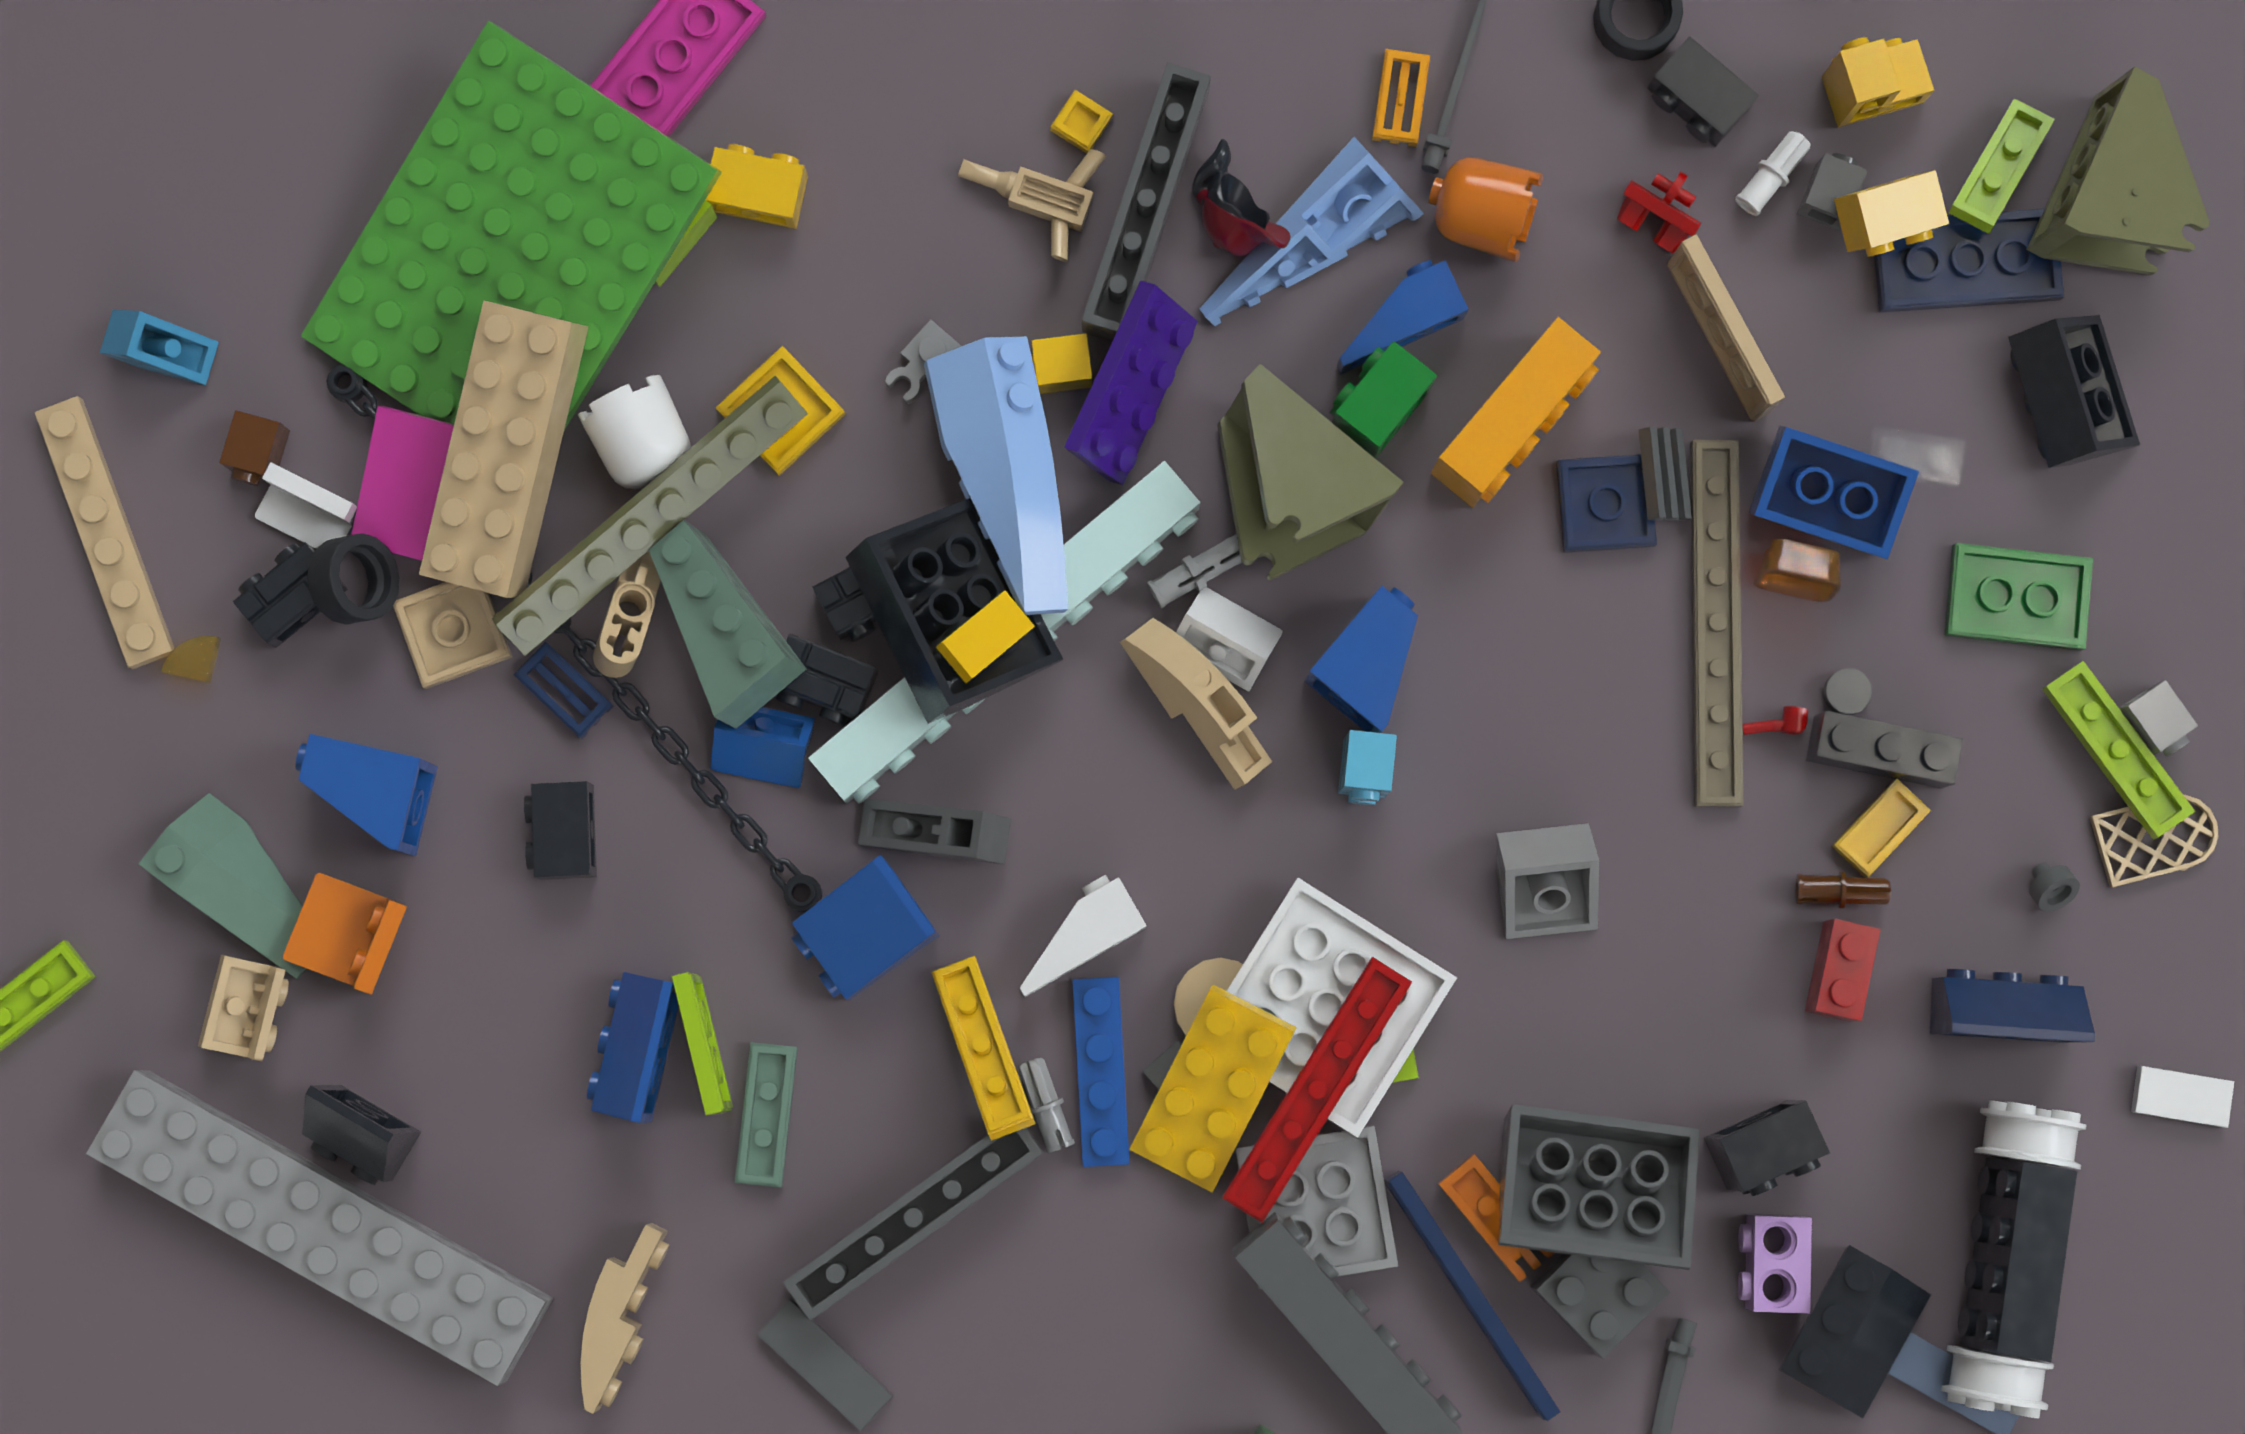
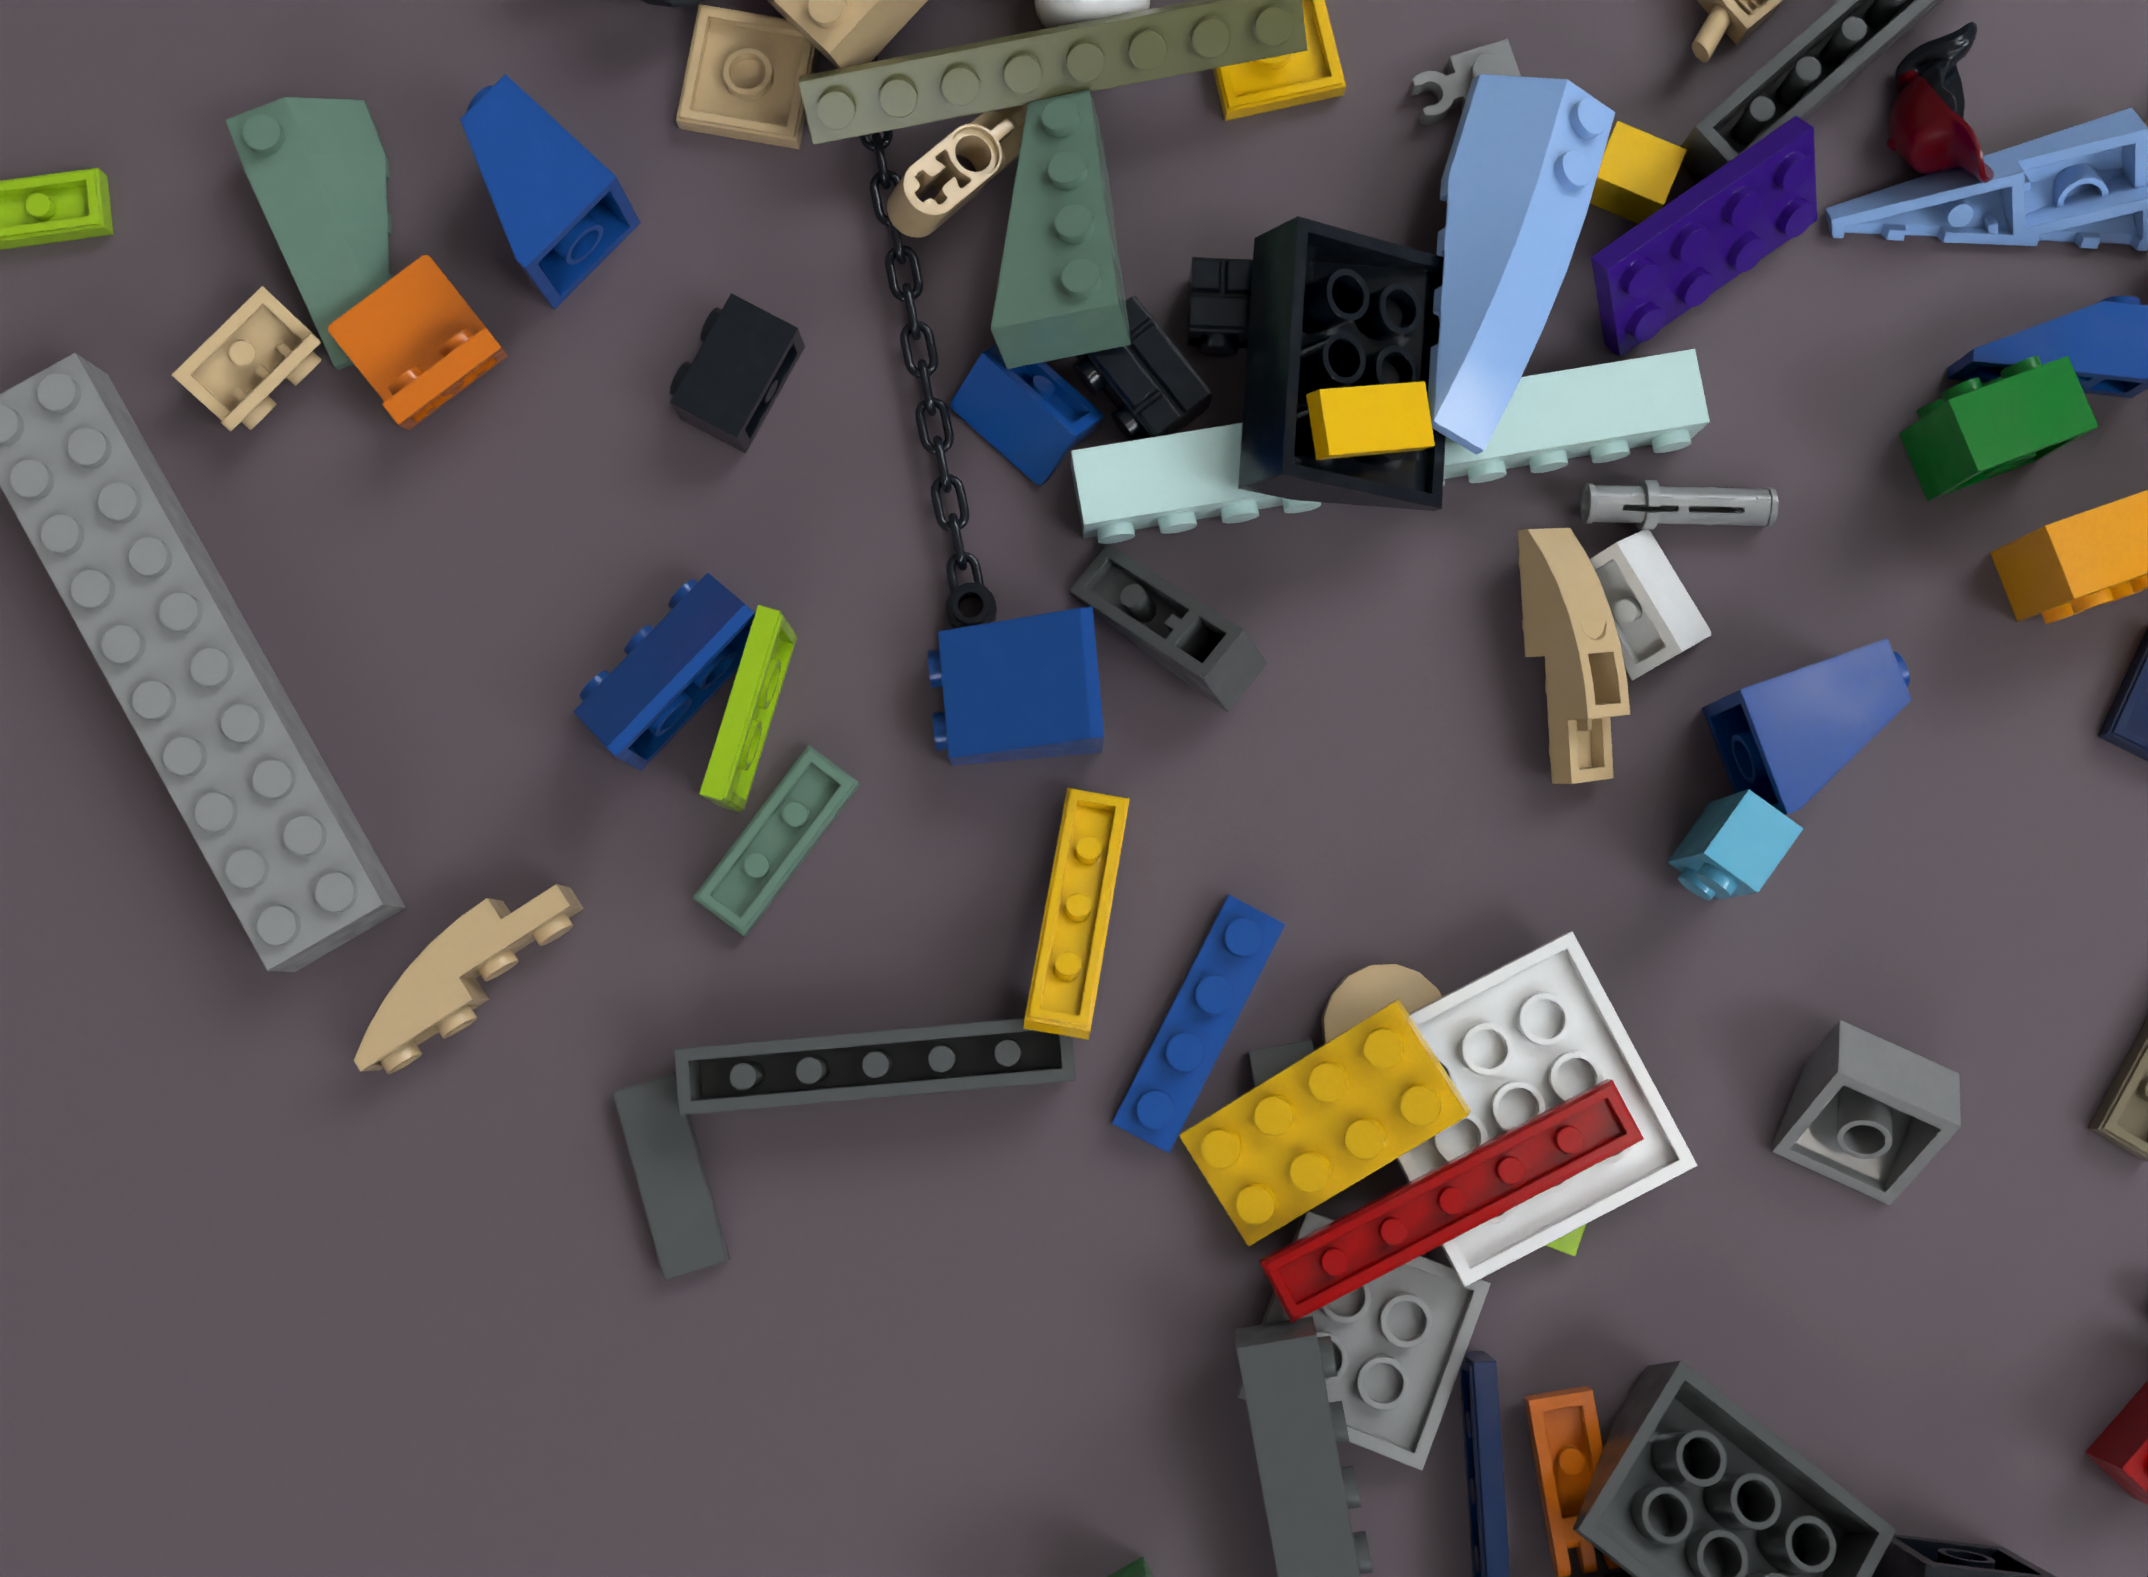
camera: 30 degrees right, 0 degrees up
(356, 1131) = (288, 573): black slope -> none
(591, 717) = (847, 266): dark blue tile -> none
(1045, 1104) = (1110, 1023): light grey axle -> none
(1092, 927) = (1293, 846): white slope -> none
(1295, 477) = (1847, 455): olive ladder -> none

